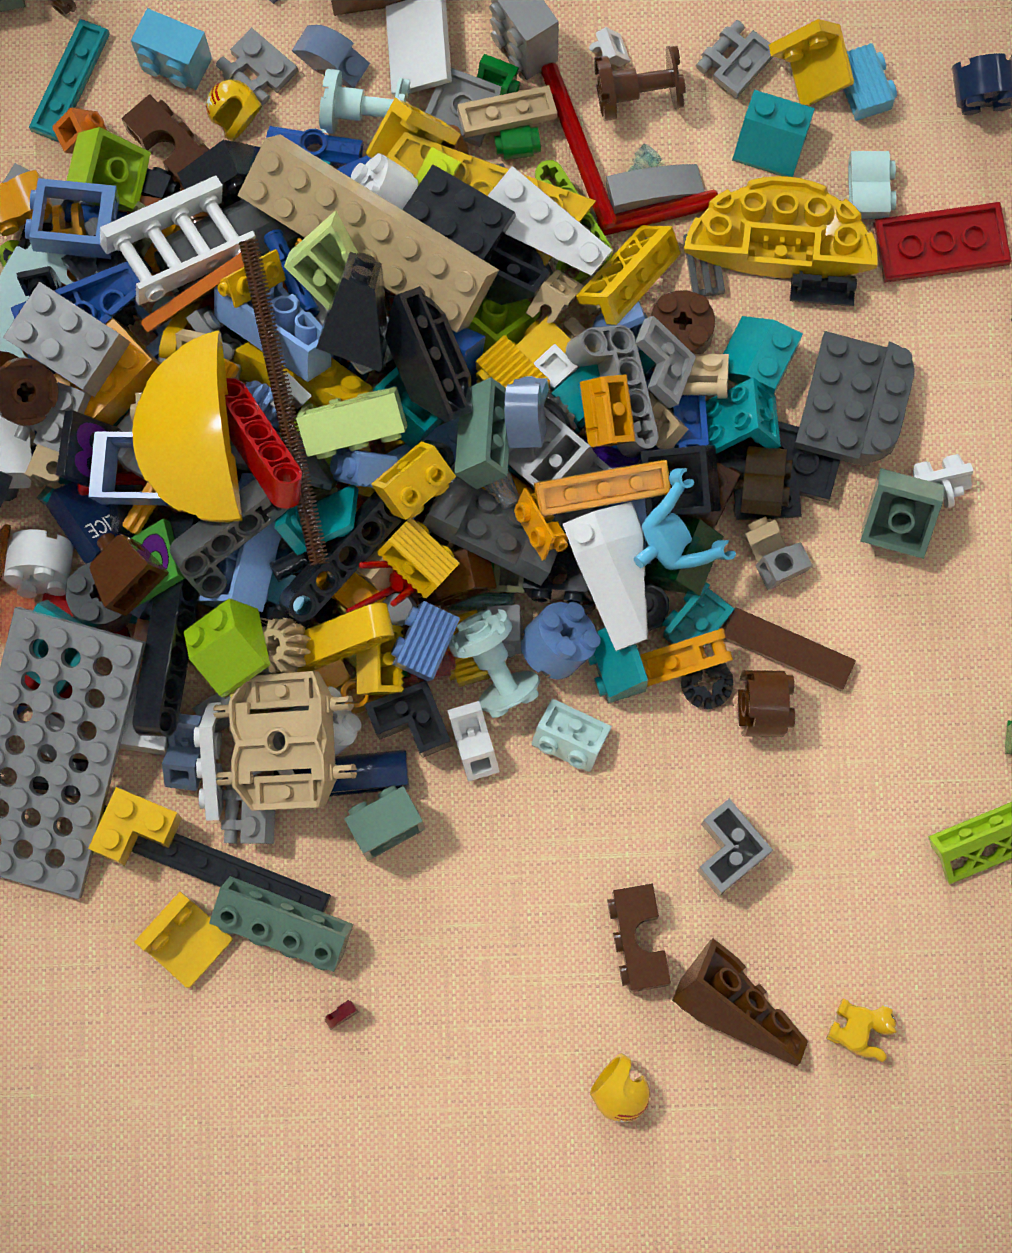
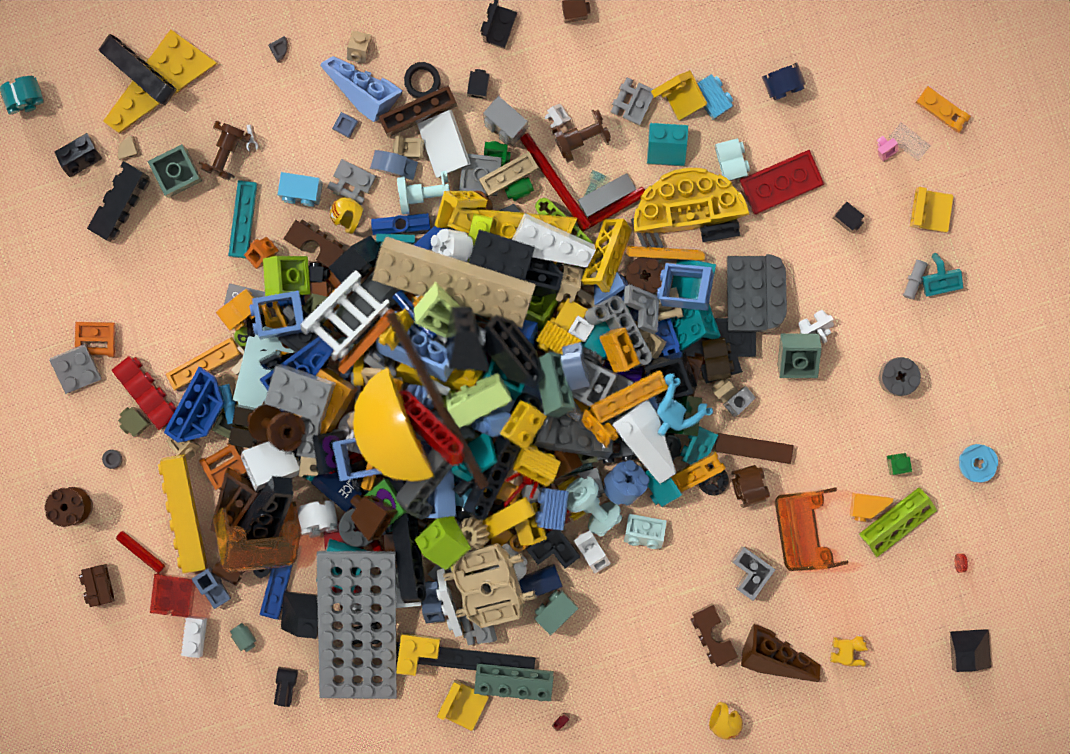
camera: 20 degrees left, 10 degrees up
(366, 36) = (408, 147): none -> tan bracket
(724, 296) = (669, 253): none -> light orange tile
(749, 325) = (686, 271): none -> medium blue window
(830, 800) = (800, 533): none -> clear orange windscreen
(956, 791) = (867, 506): none -> light orange slope

